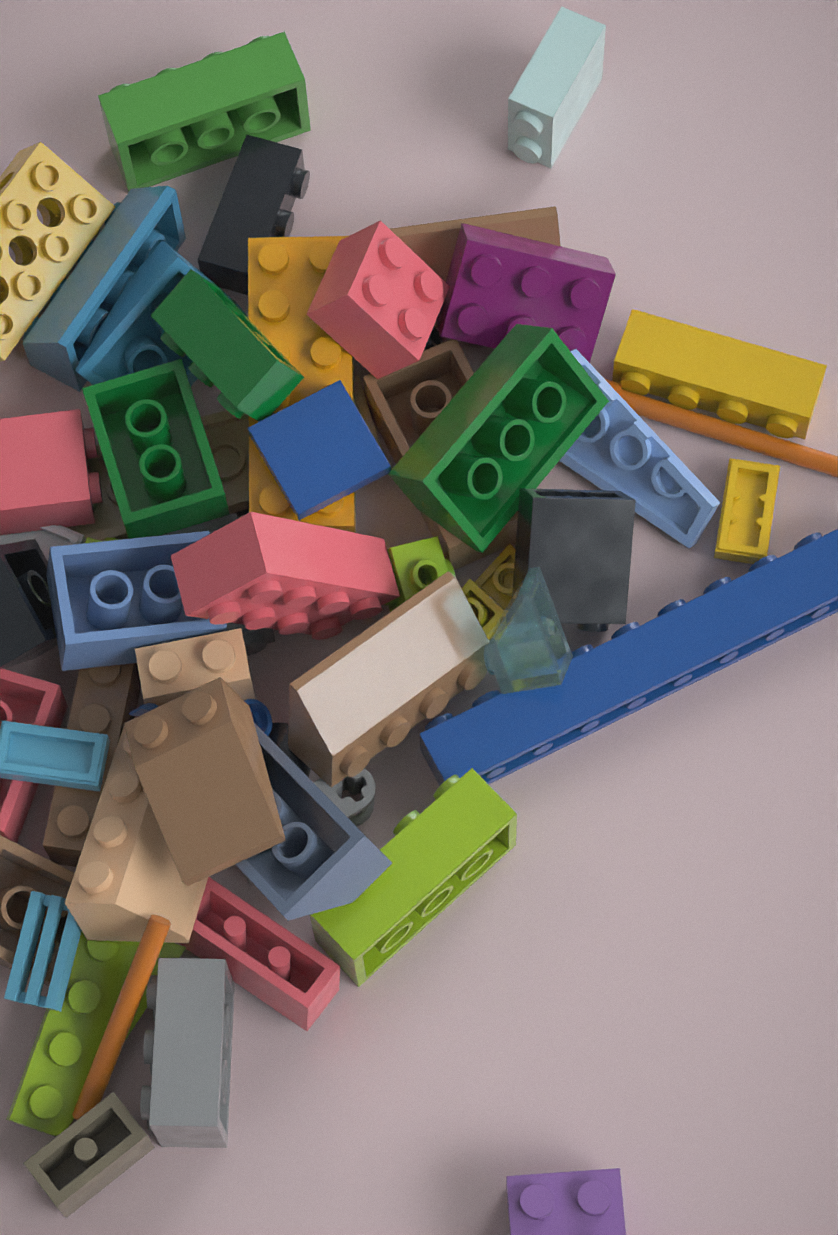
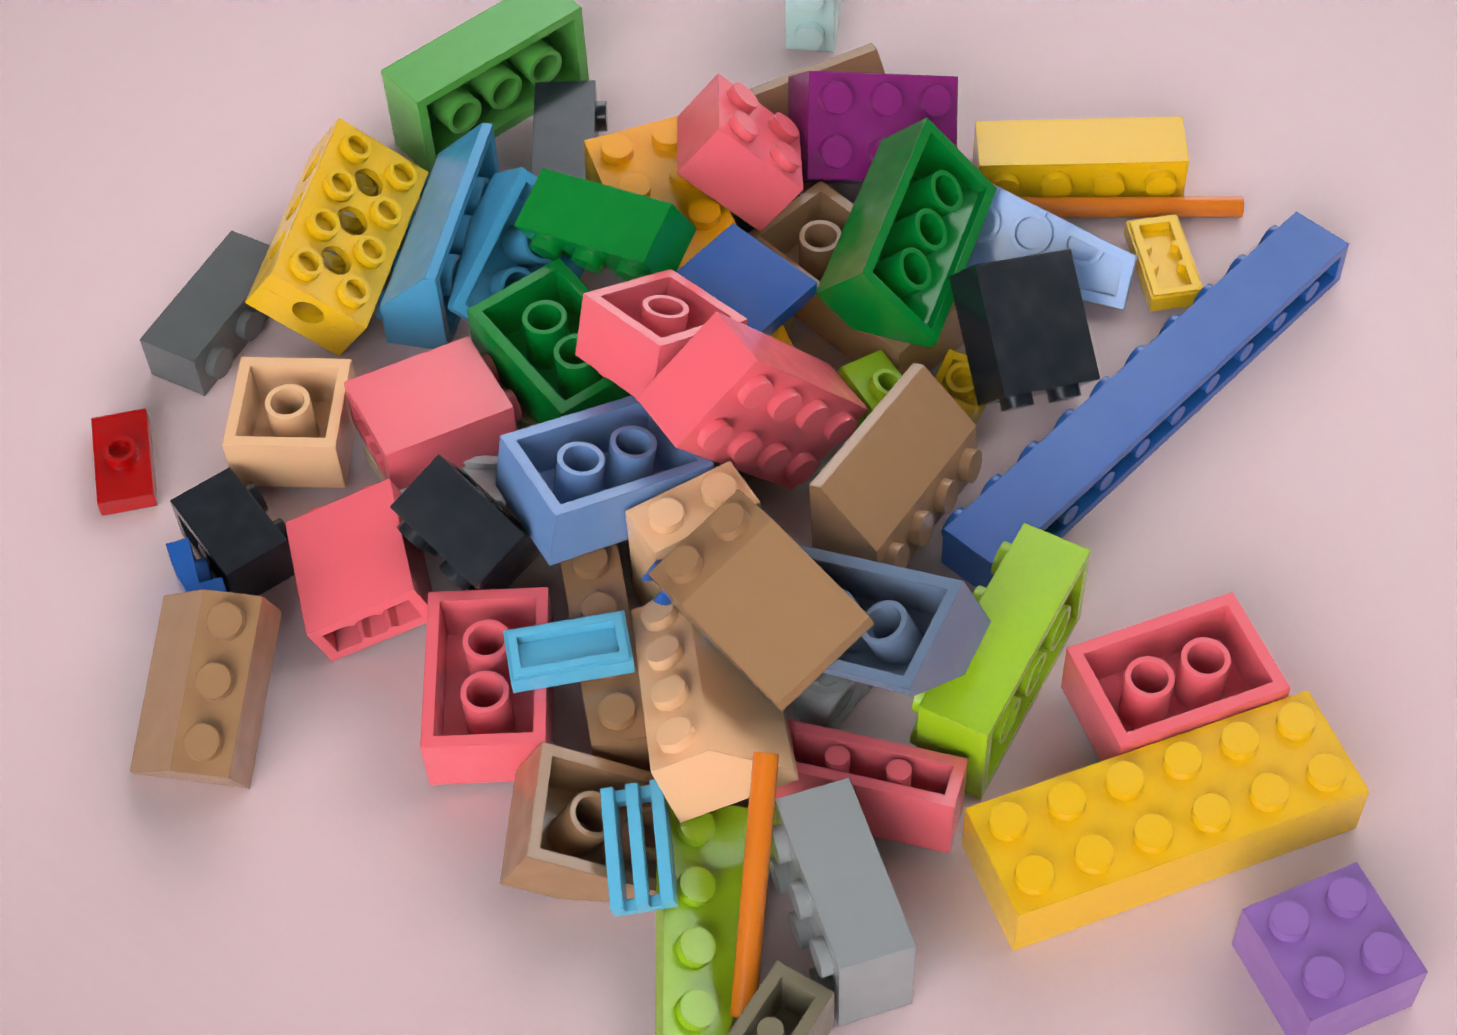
camera: 20 degrees left, 15 degrees down
(218, 477) = (642, 325): none -> coral brick
(490, 1064) = (1162, 819): none -> yellow brick
(528, 640) = (1016, 405): clear light blue slope -> none
(551, 950) = (1169, 676): none -> coral brick

